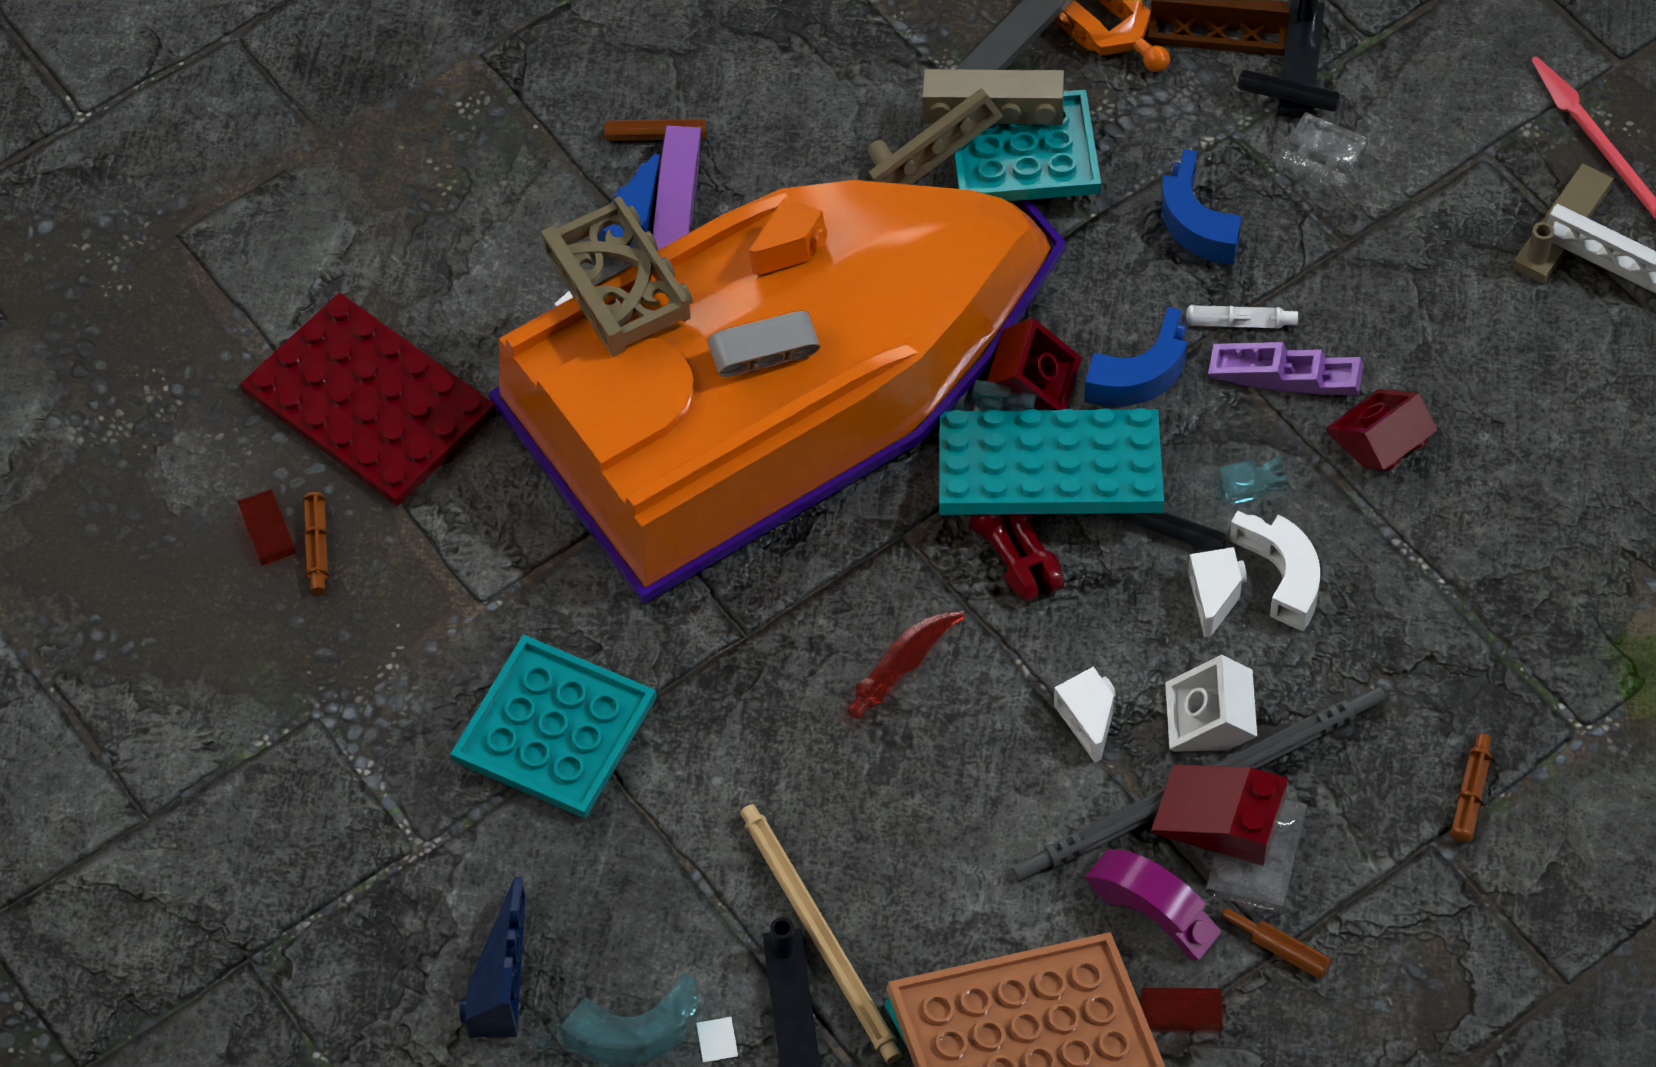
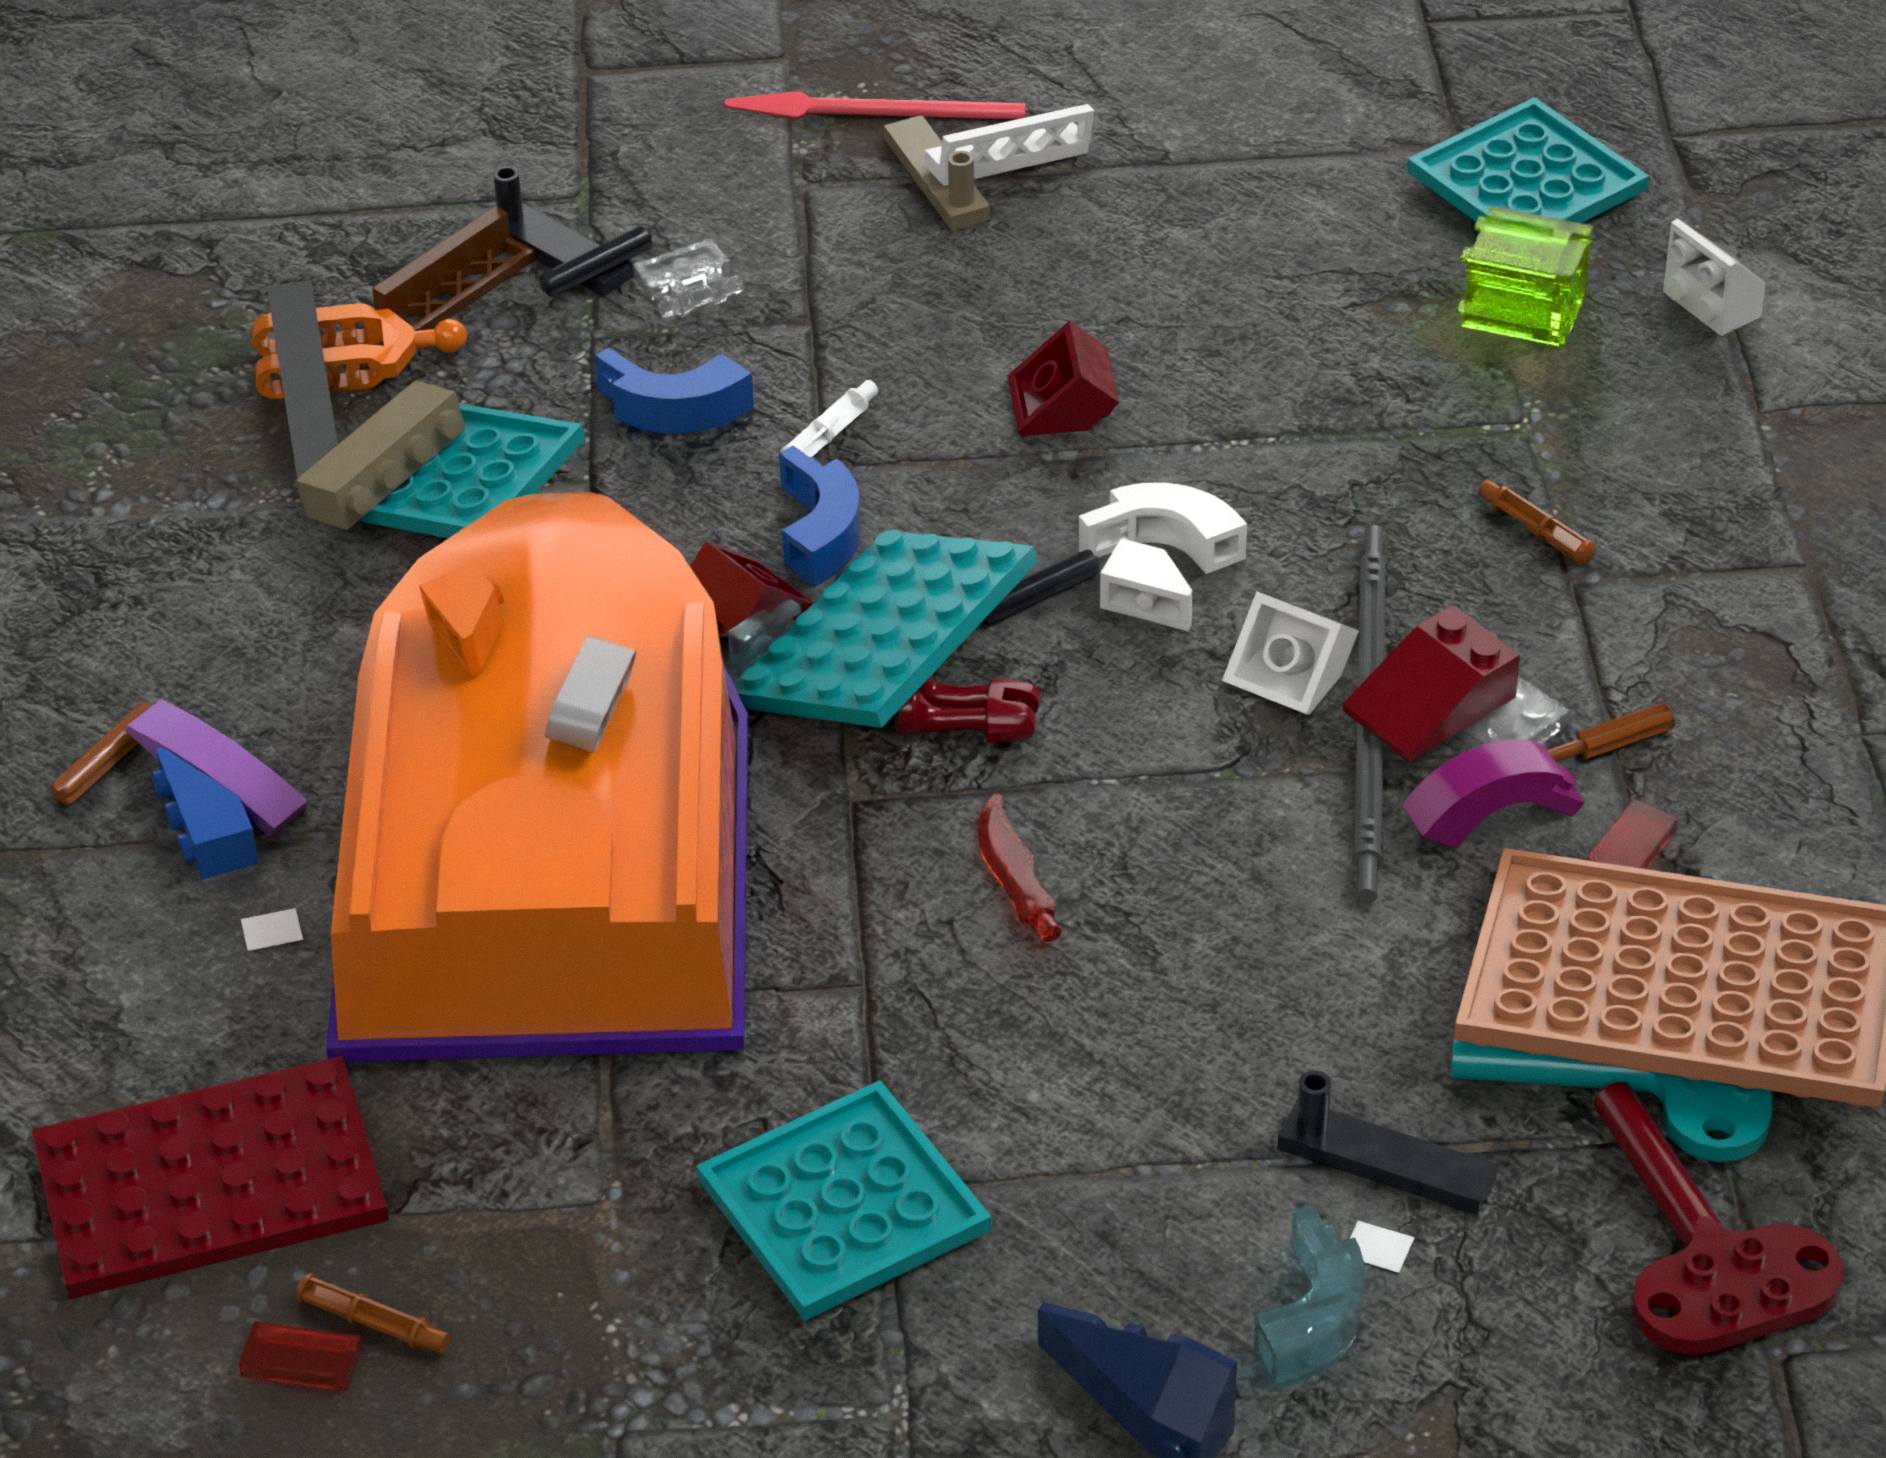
camera: 60 degrees left, 15 degrees down
(605, 318) = (403, 802): dark tan fence -> none
(821, 934) = (1284, 1085): tan piece -> none
(935, 142) = (395, 524): dark tan piece -> none
(1087, 709) = (1219, 745): white slope -> none
(1248, 482) = (1034, 511): clear light blue plate -> none
(1279, 369) = (925, 423): medium lavender slope -> none

